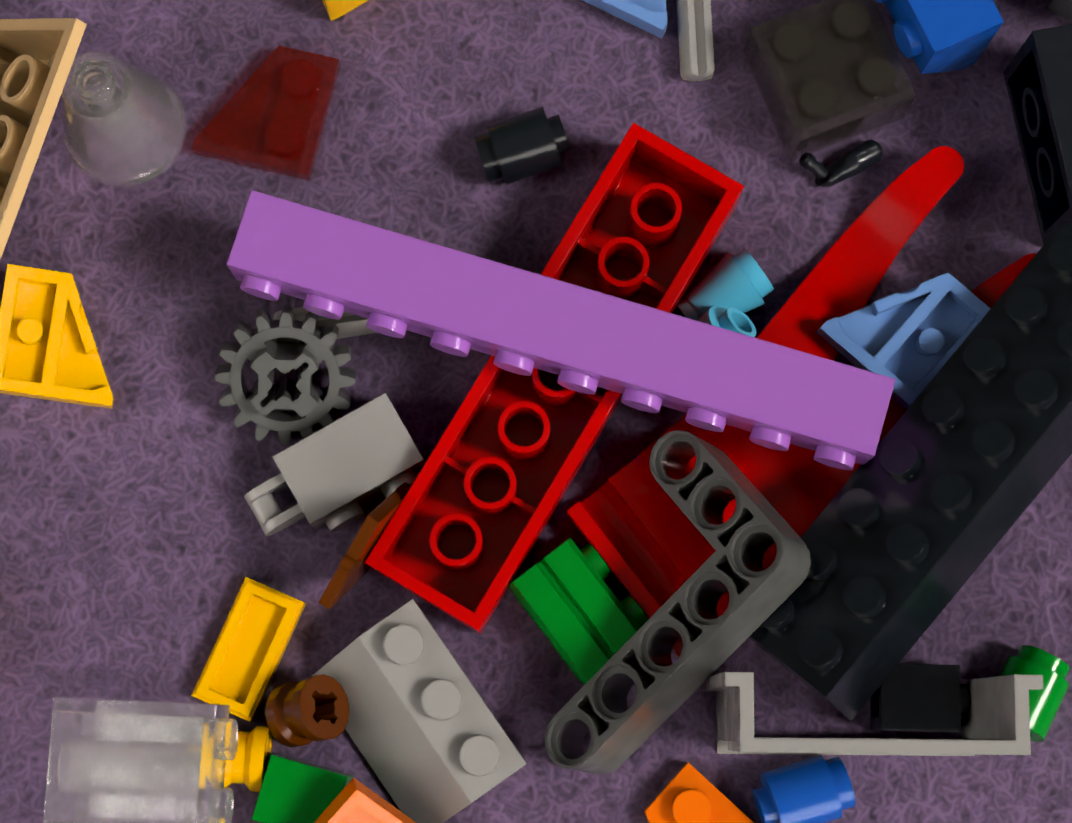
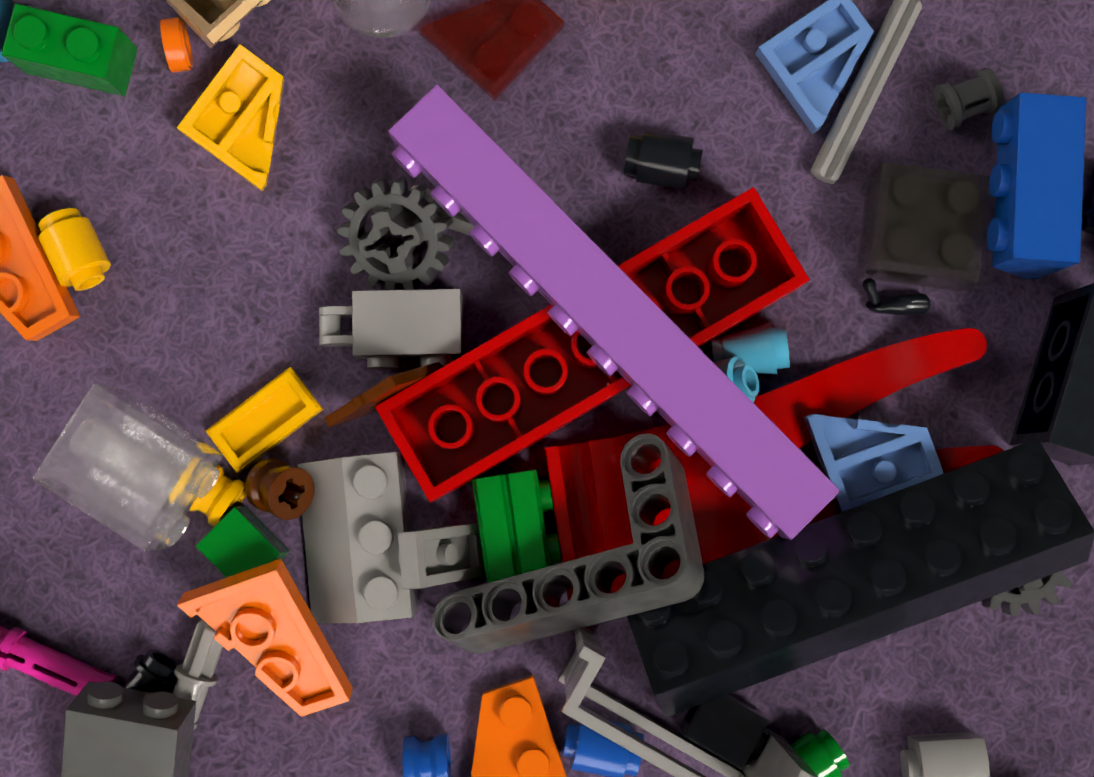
camera: 30 degrees right, 5 degrees up
(519, 682) = (440, 555): none -> light grey plate

